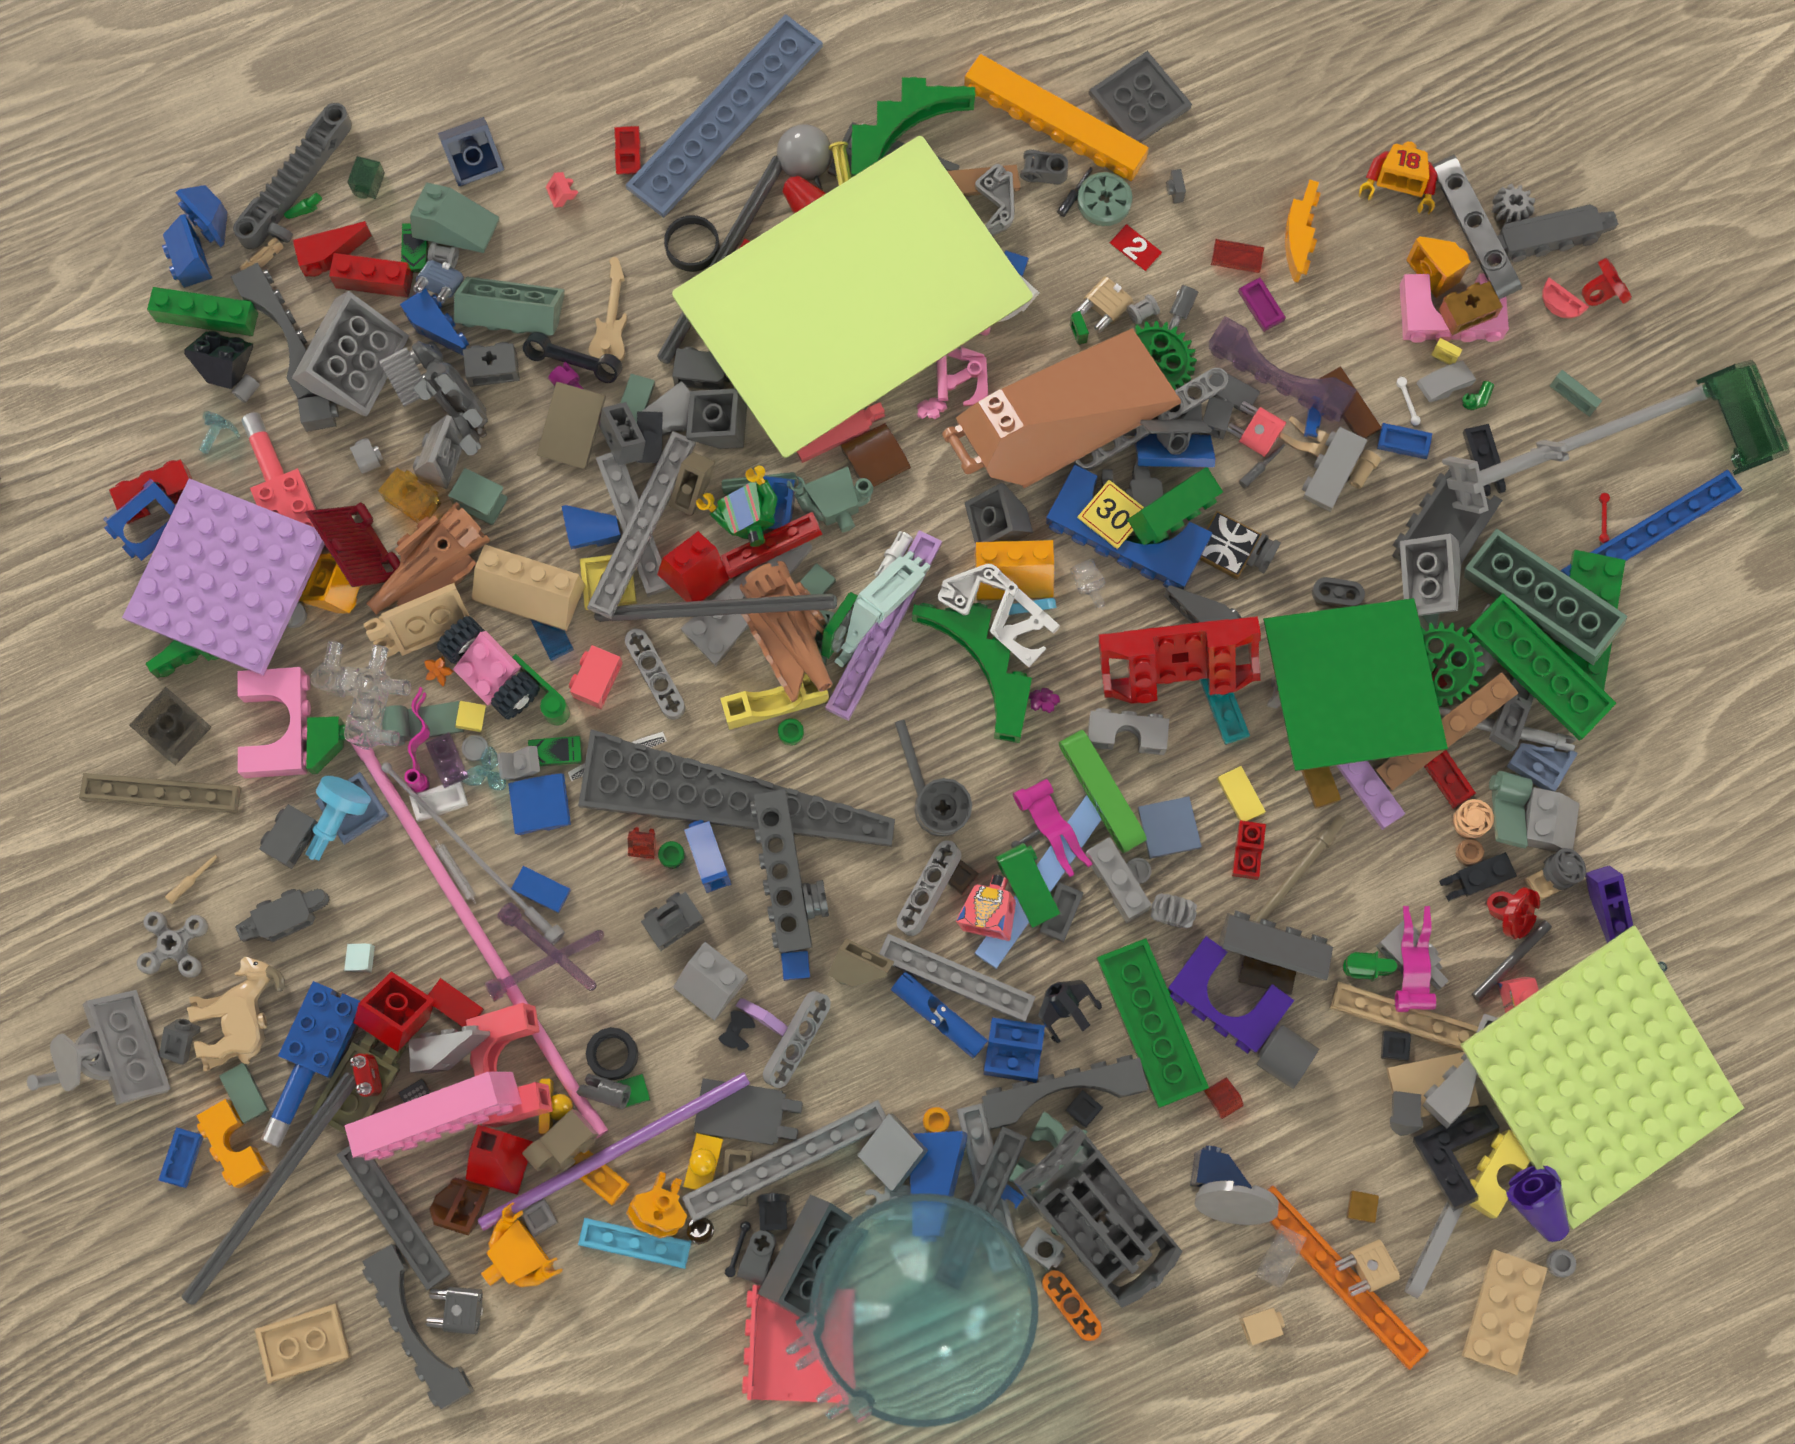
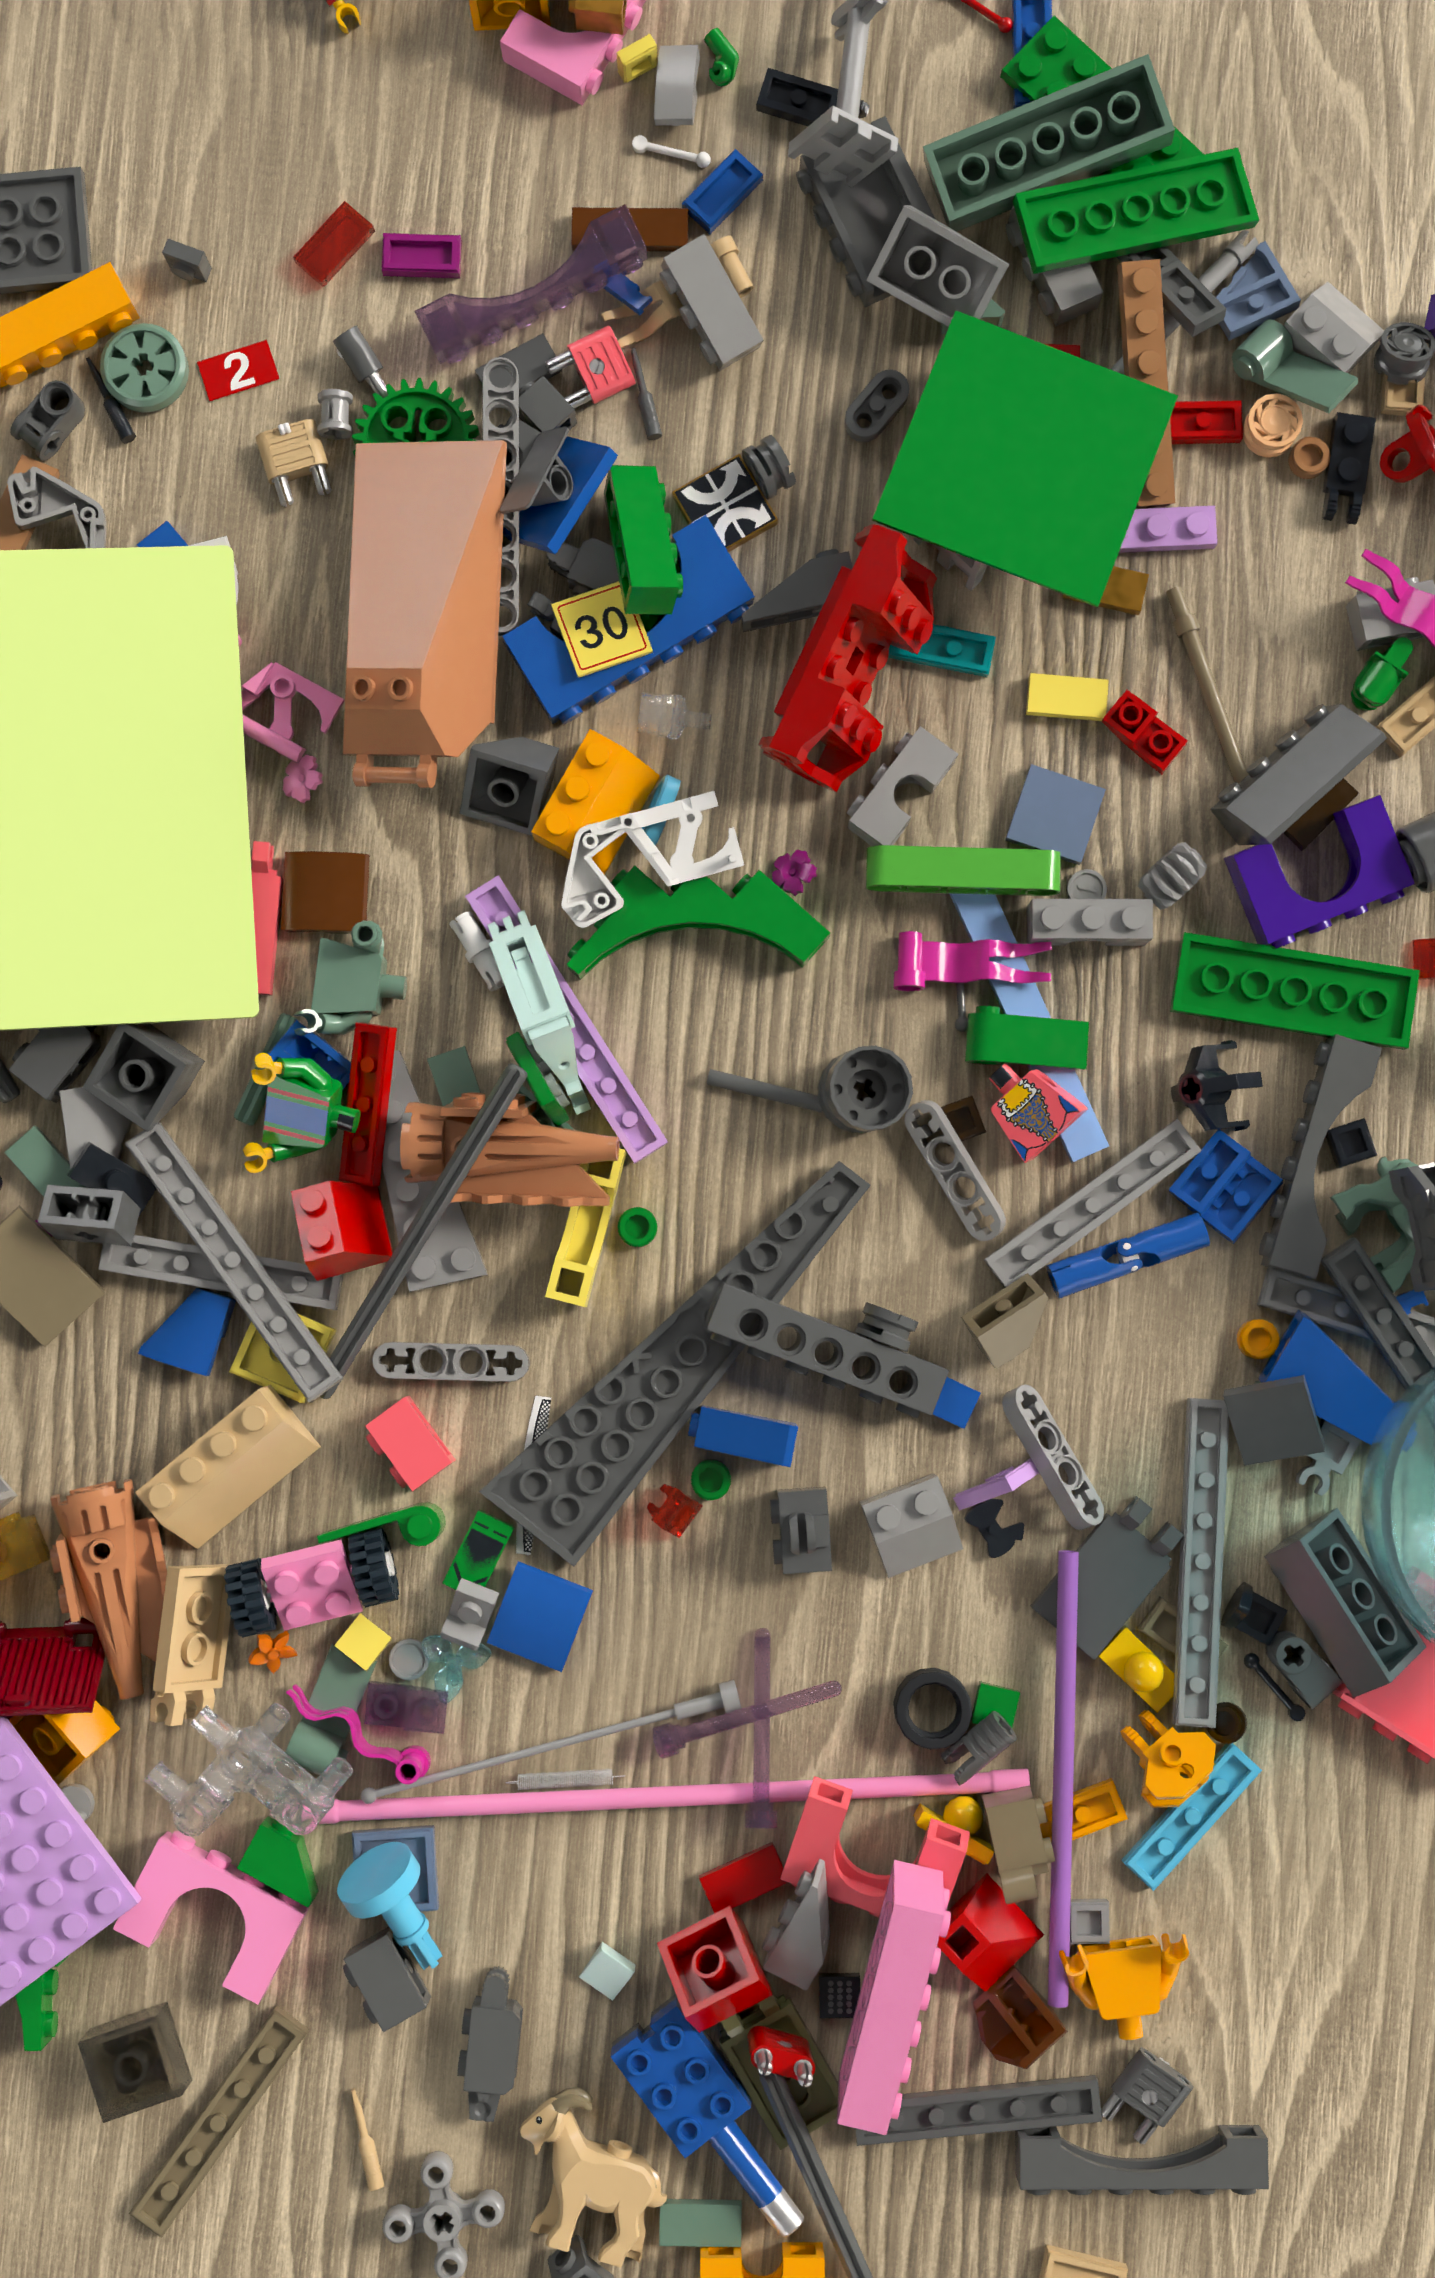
camera: 60 degrees left, 10 degrees up
(439, 800) = (455, 1746): white tile -> none
(478, 496) = (57, 1460): sand green piece -> none
(541, 889) = (656, 1678): blue tile -> none
(553, 639) = (322, 1470): tile -> none
(691, 482) = (213, 1159): dark tan slope -> none
(1067, 901) = (1076, 1003): dark grey tile -> none
(1079, 328) = (309, 514): green tile -> none
(1299, 232) = (353, 144): light orange slope -> none
(1461, 676) = (1090, 314): green gear -> none

